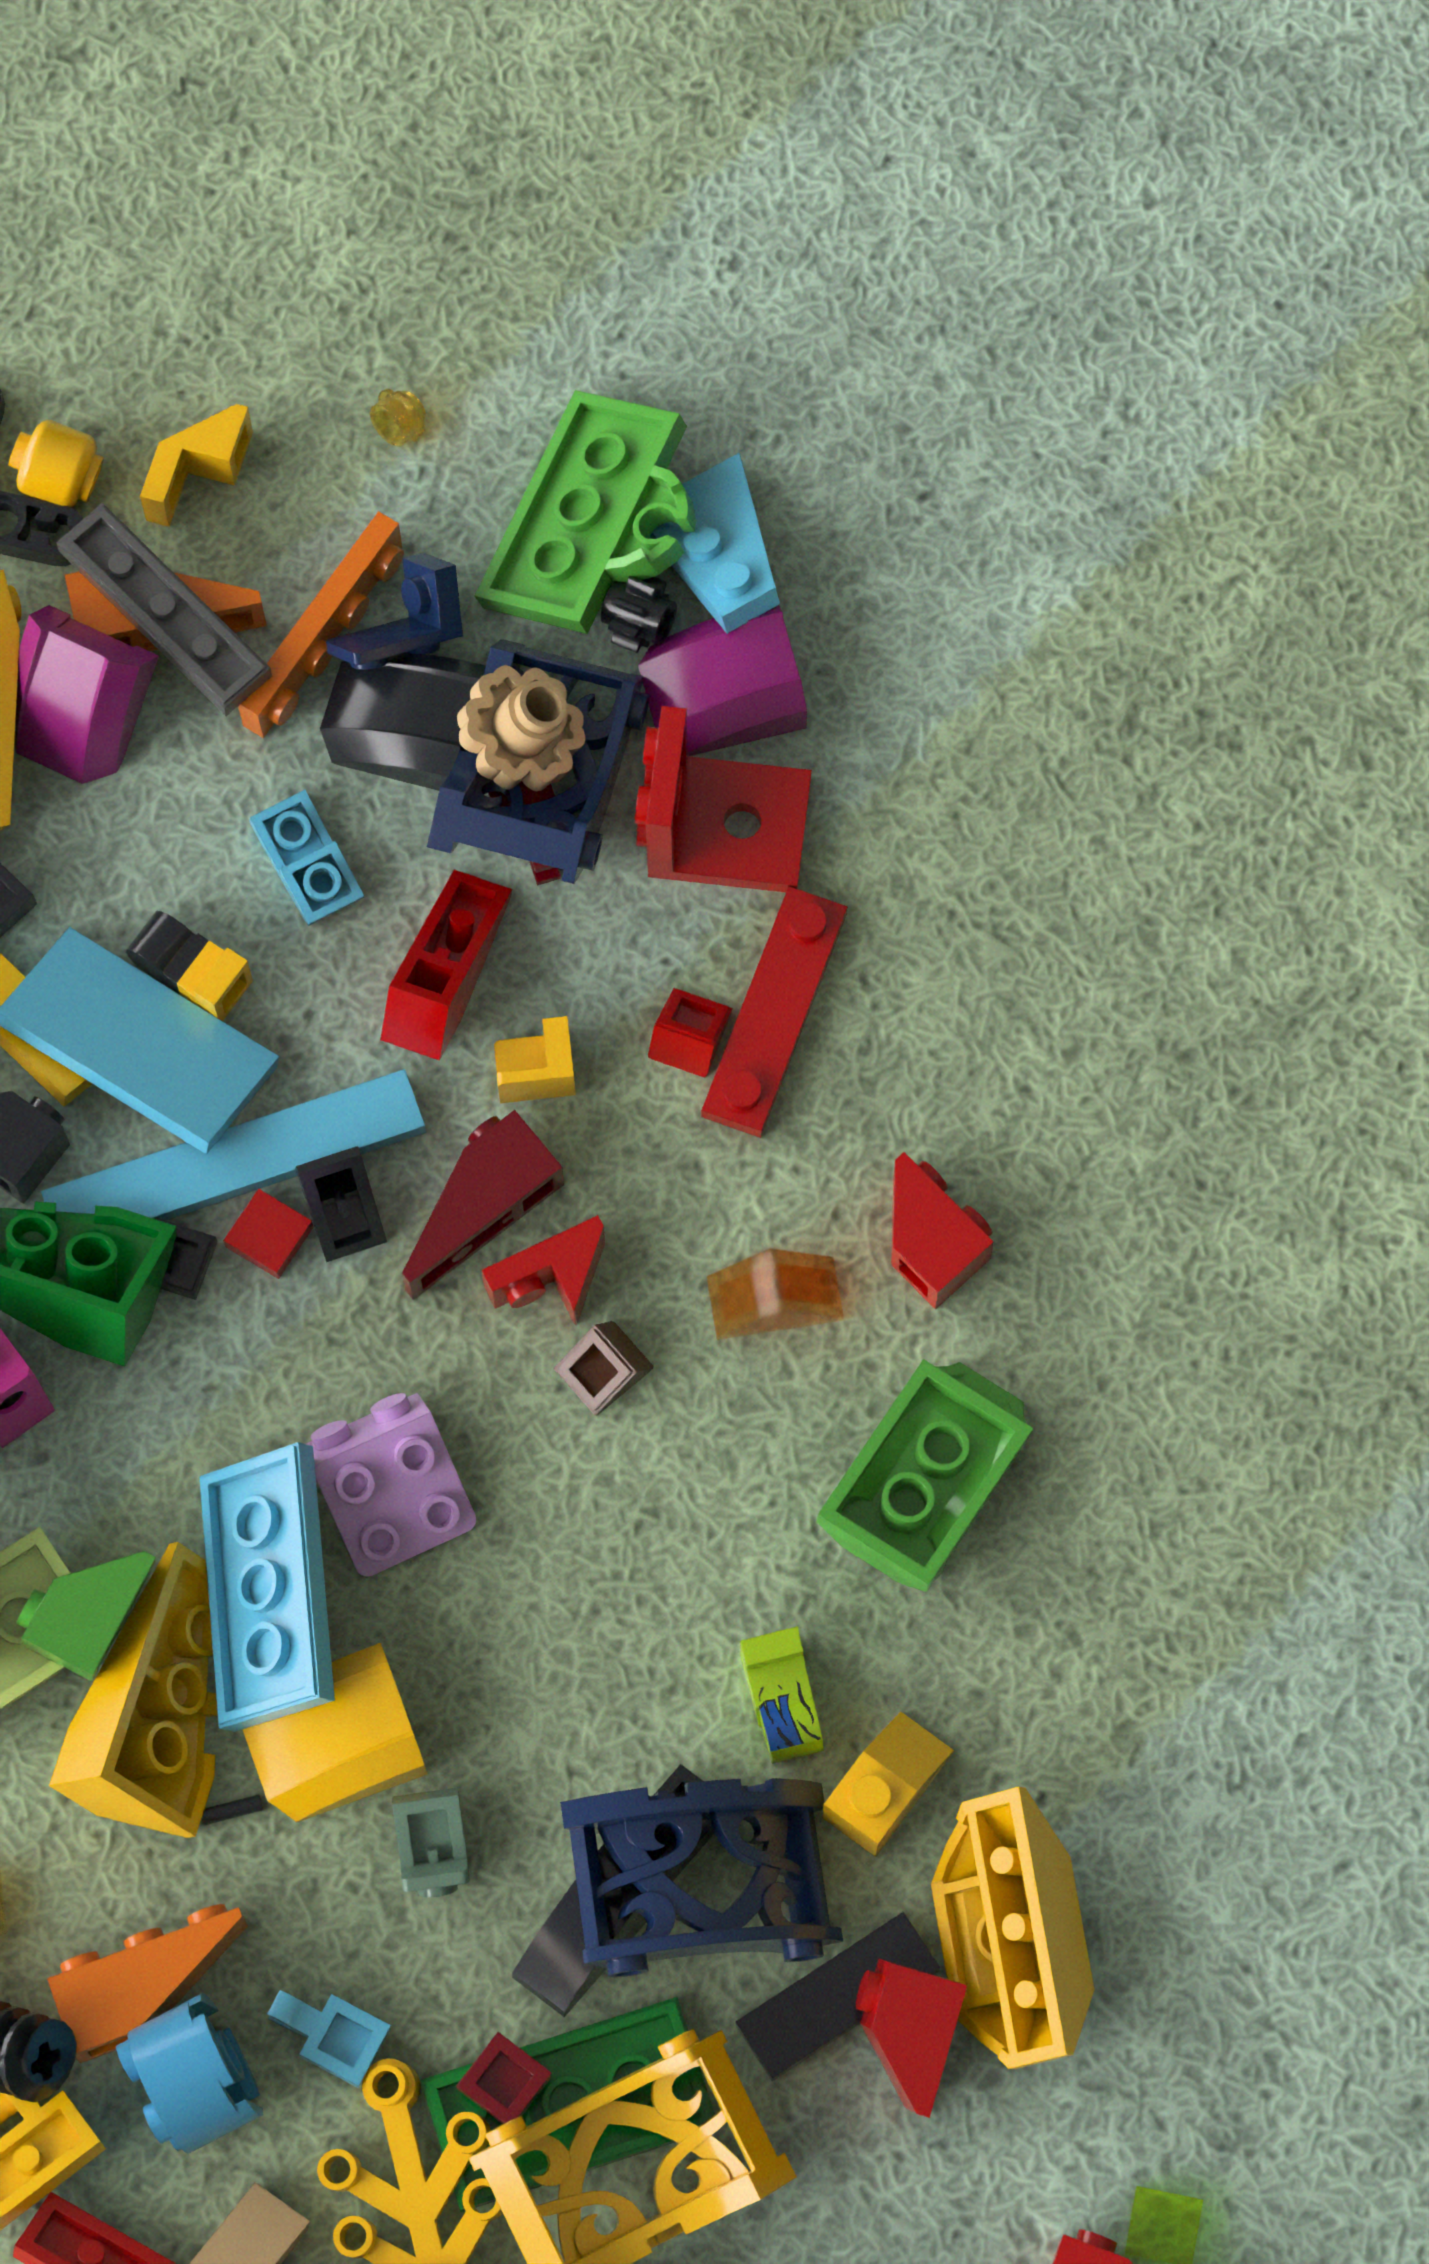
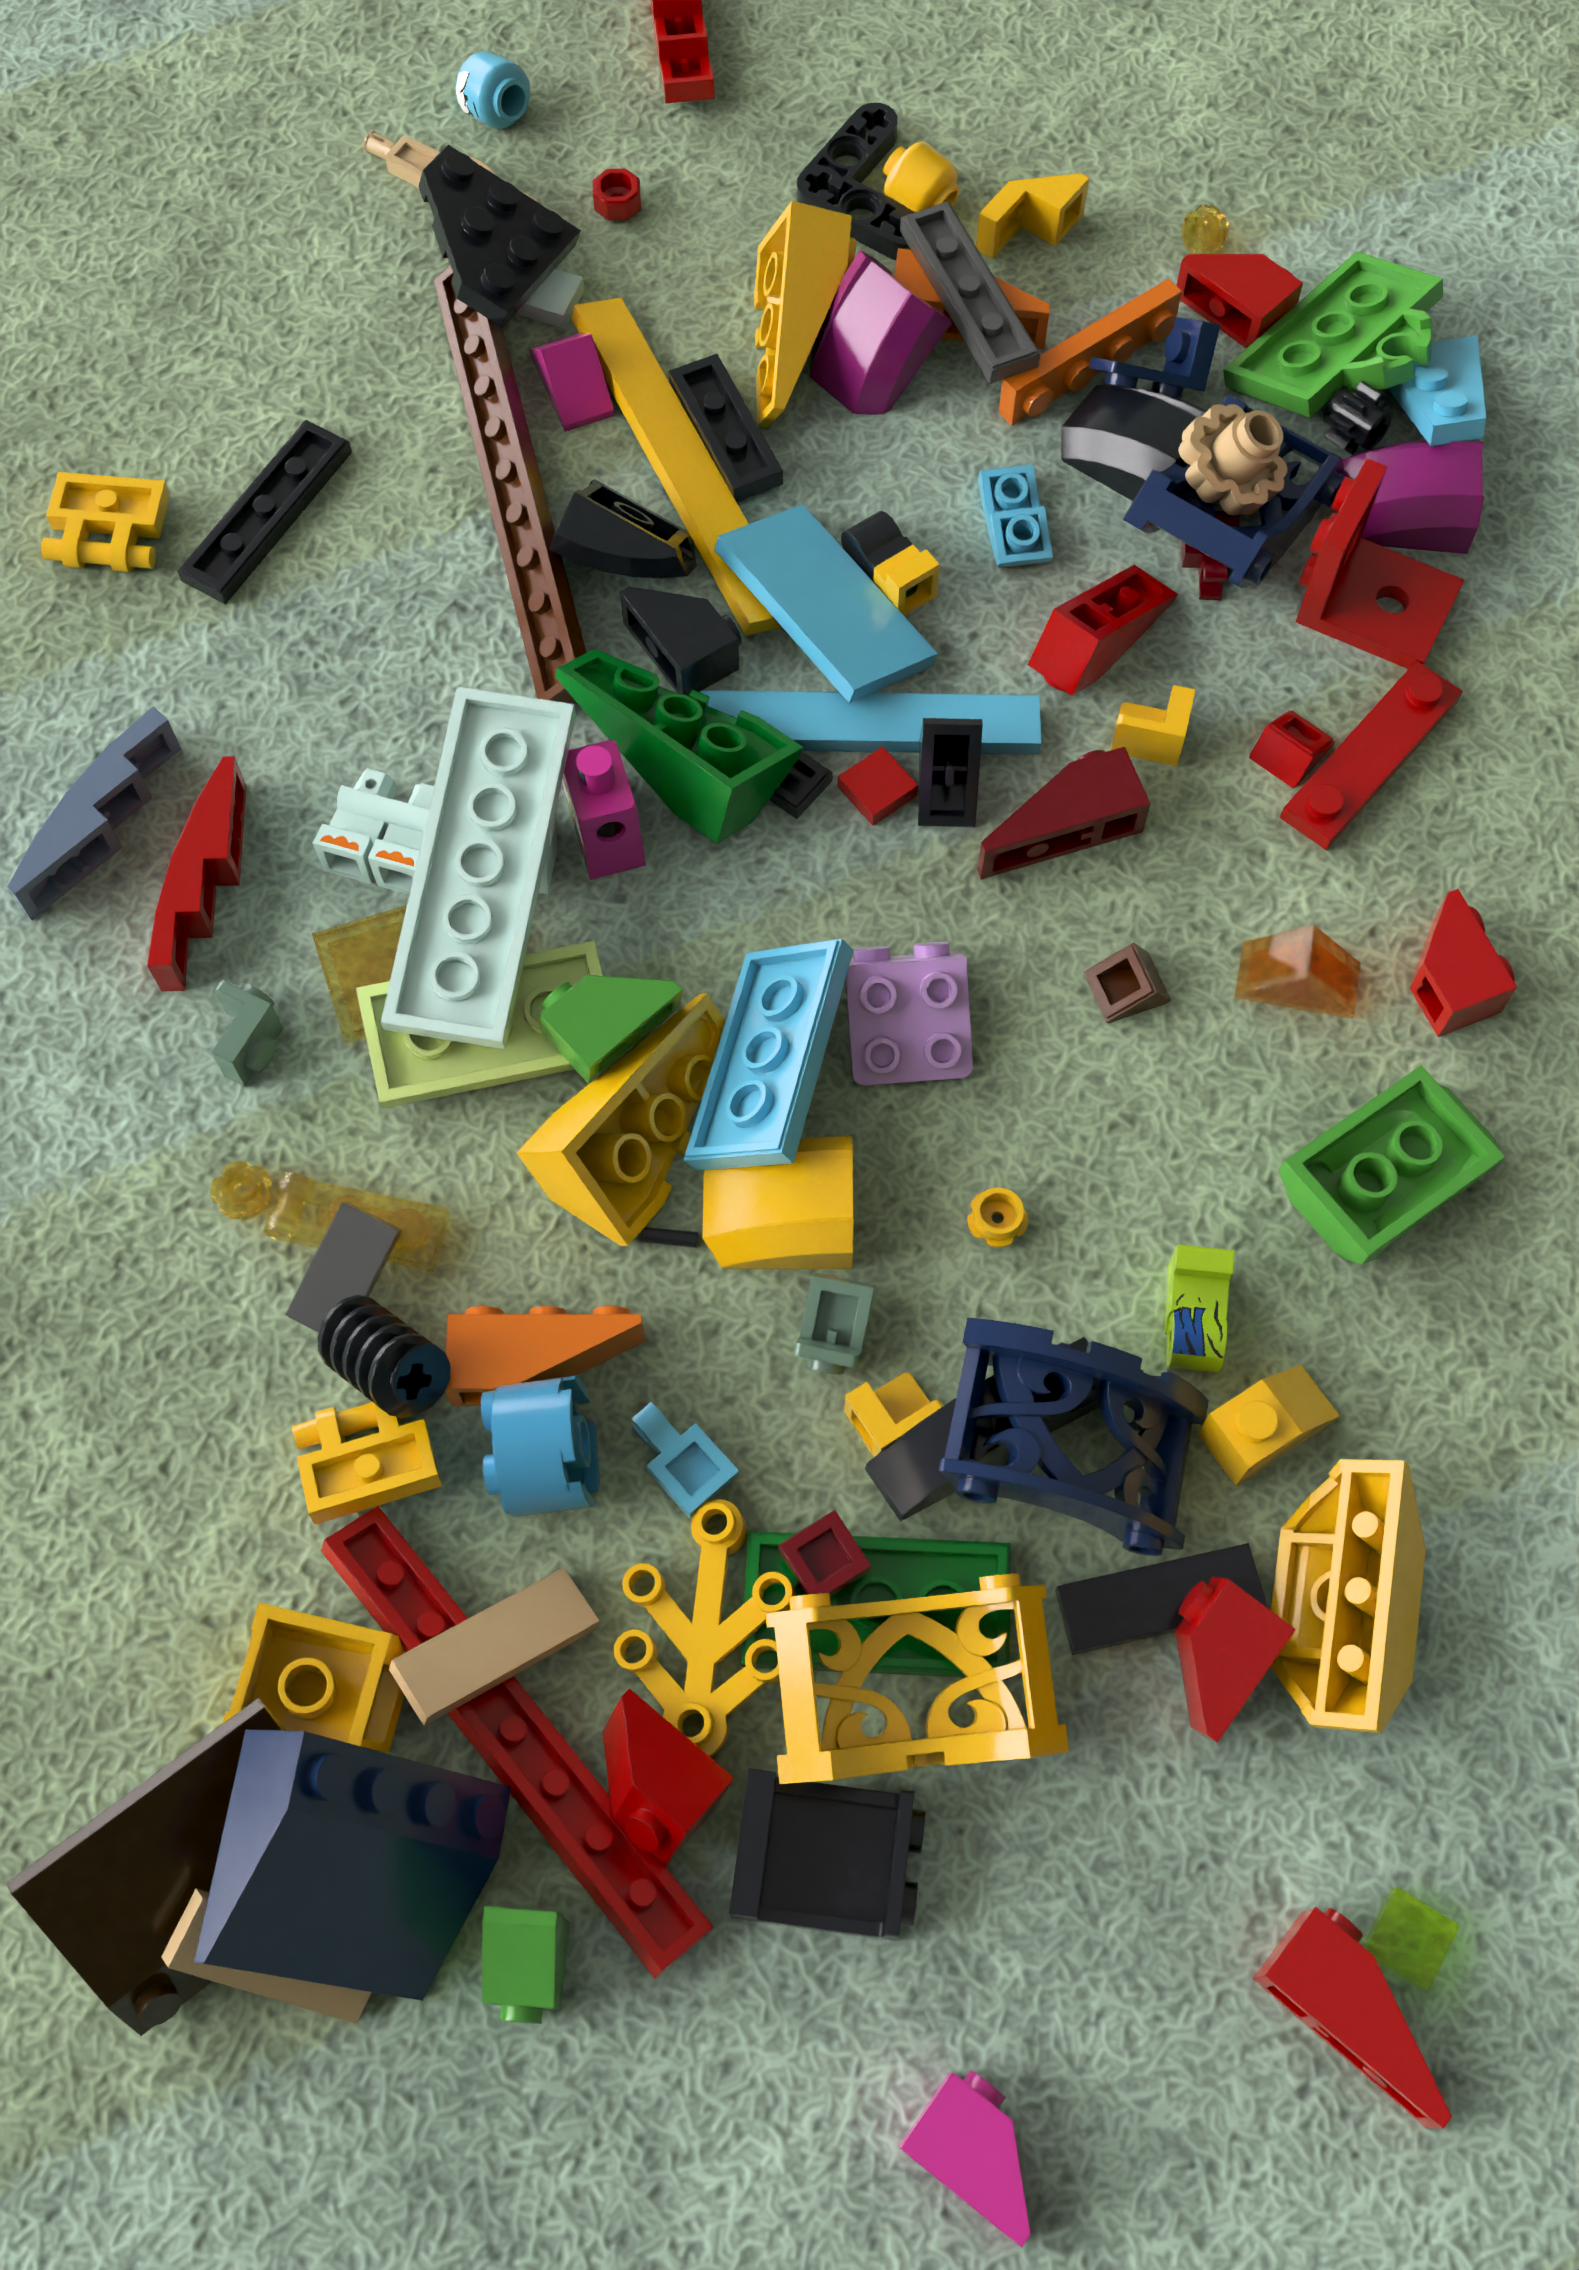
camera: 20 degrees right, 5 degrees down
(463, 491) = (1238, 292): none -> red slope
(516, 1909) = (888, 1411): none -> yellow panel
(549, 1652) = (1001, 1202): none -> yellow plate
(563, 1259) = (1120, 882): red slope -> none

